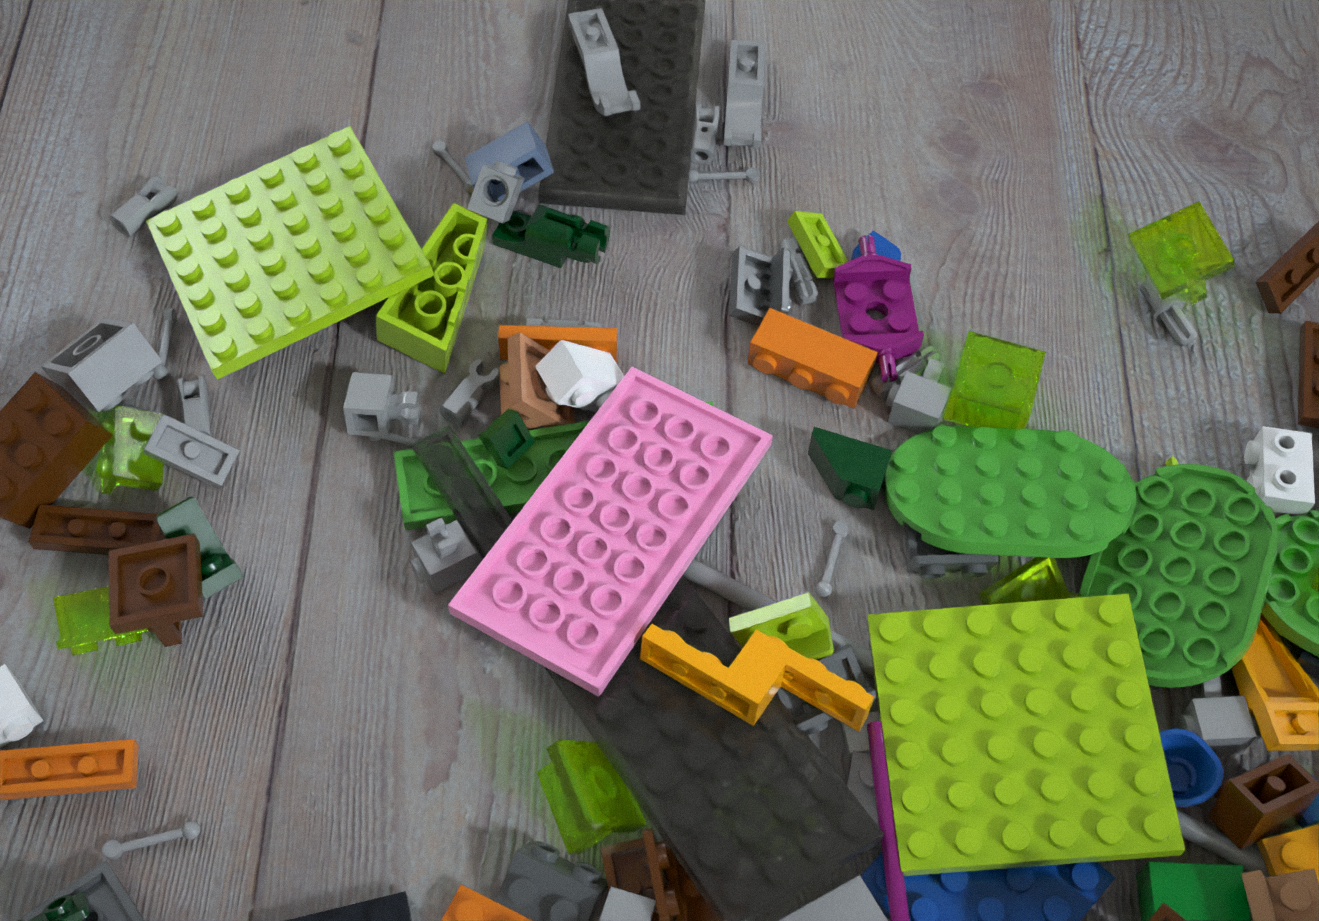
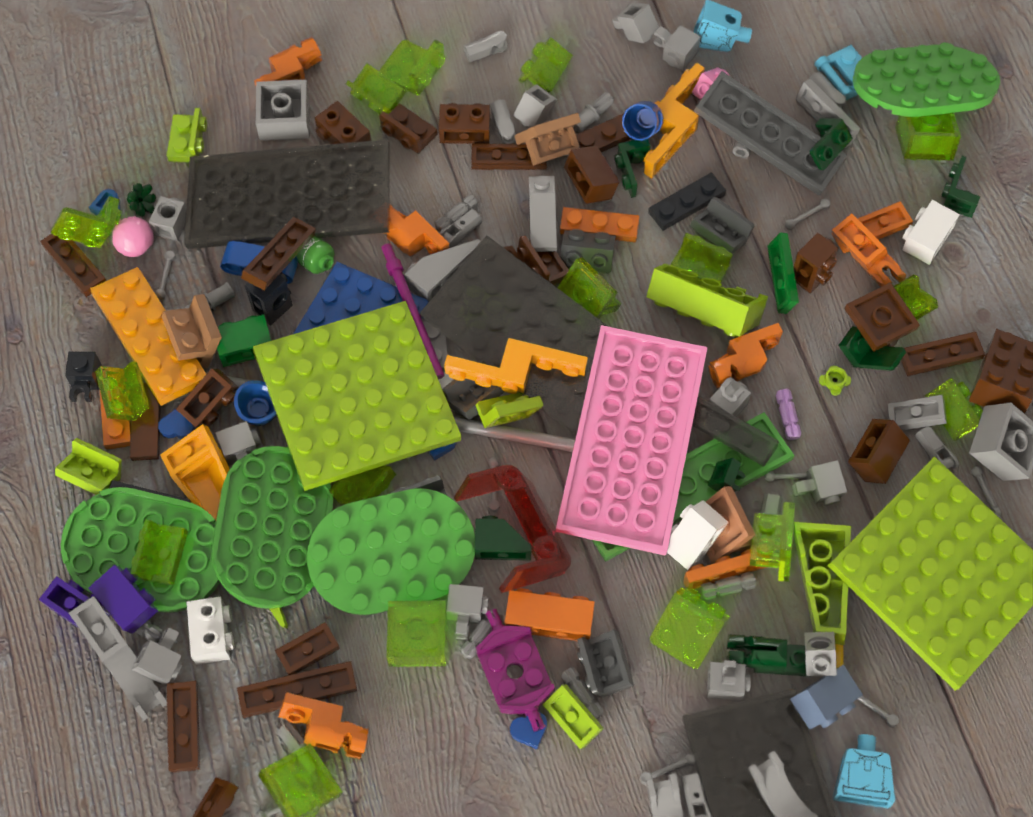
camera: 165 degrees right, 5 degrees up
(104, 713) = (867, 250): none -> orange plate
(198, 715) = (815, 263): none -> reddish brown brick
(255, 733) = (783, 273): none -> green tile
(272, 536) = (838, 373): none -> lime plate
(277, 416) = (879, 451): none -> reddish brown brick
(310, 849) = (723, 225): none -> dark grey bracket
(368, 520) = (788, 414): none -> lavender axle
(377, 794) = (702, 258): none -> clear neon green bracket
(384, 618) = (745, 355): none -> orange plate
(402, 709) = (706, 300): none -> lime wedge
(480, 335) = (773, 541): none -> clear neon green bracket
(505, 96) = (865, 776): none -> medium azure torso
(624, 220) = (727, 680): none -> light grey brick
(628, 296) = (689, 627): none -> clear neon green bracket
(815, 510) = (547, 546): none -> clear red windscreen
(1137, 313) = (324, 725): none -> orange plate
(1145, 415) = (307, 649): none -> reddish brown plate
(1165, 374) = (313, 684): none -> reddish brown plate

